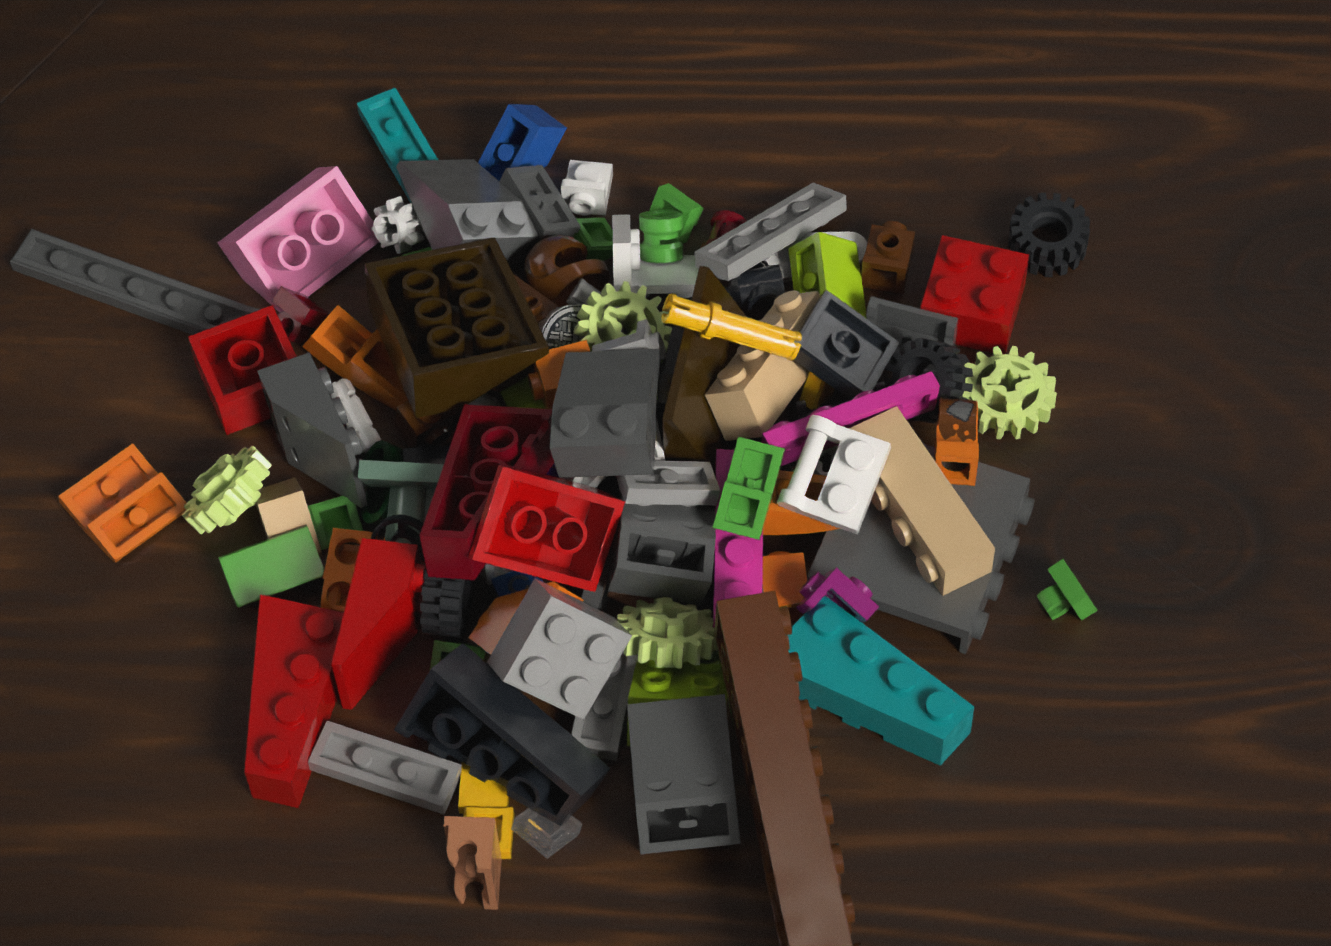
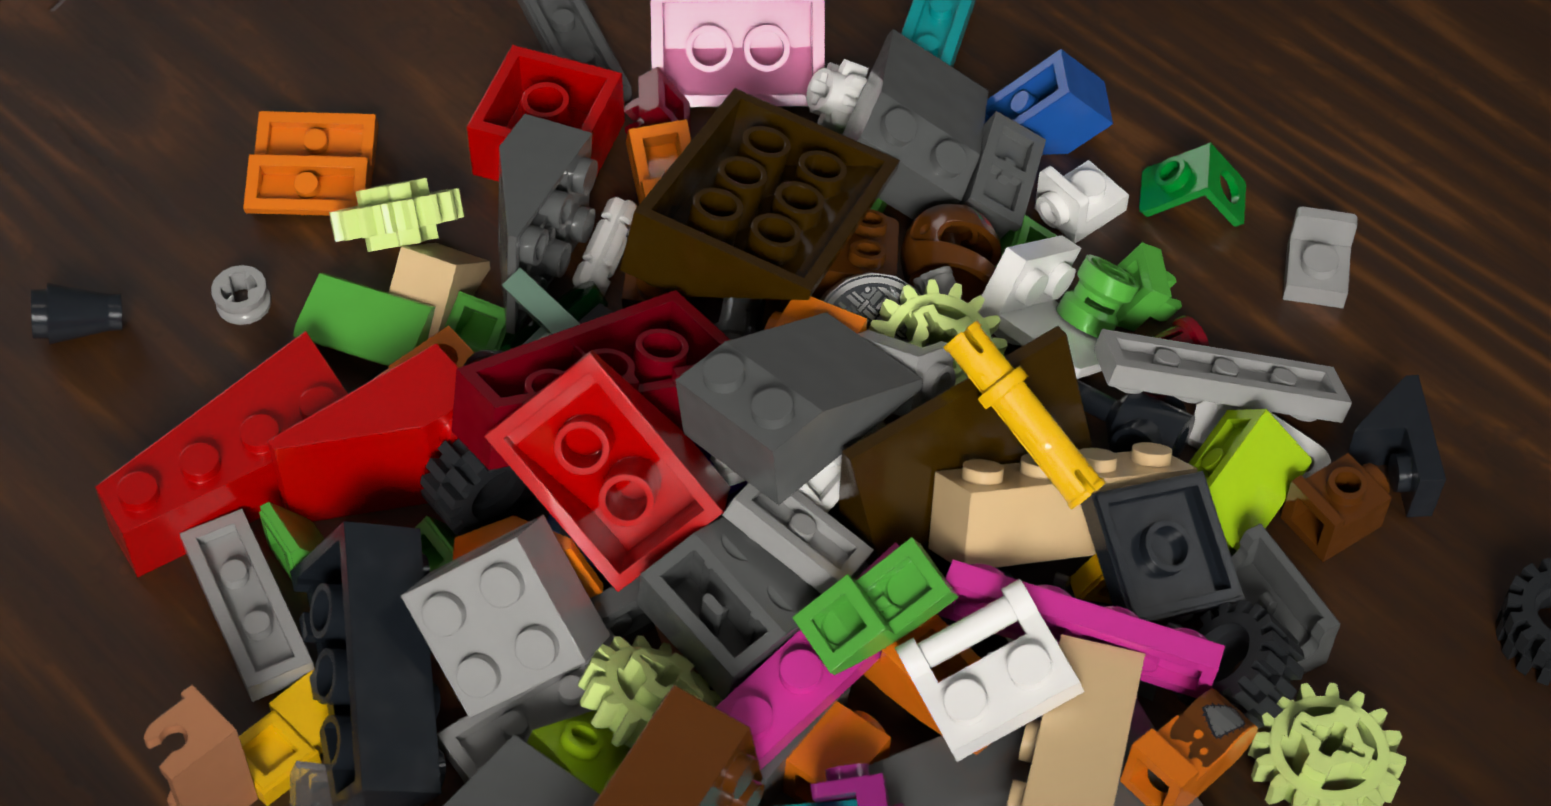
camera: 40 degrees right, 5 degrees down
(87, 700) = (73, 313): none -> black cone
(170, 596) = (237, 279): none -> light grey bush
(374, 717) = (288, 535): none -> bright green slope
(636, 132) = (1191, 177): none -> green bracket
(746, 125) = (1319, 257): none -> light grey bracket
(890, 194) = (1403, 437): none -> black slope
(979, 288) = (1402, 617): red brick -> none

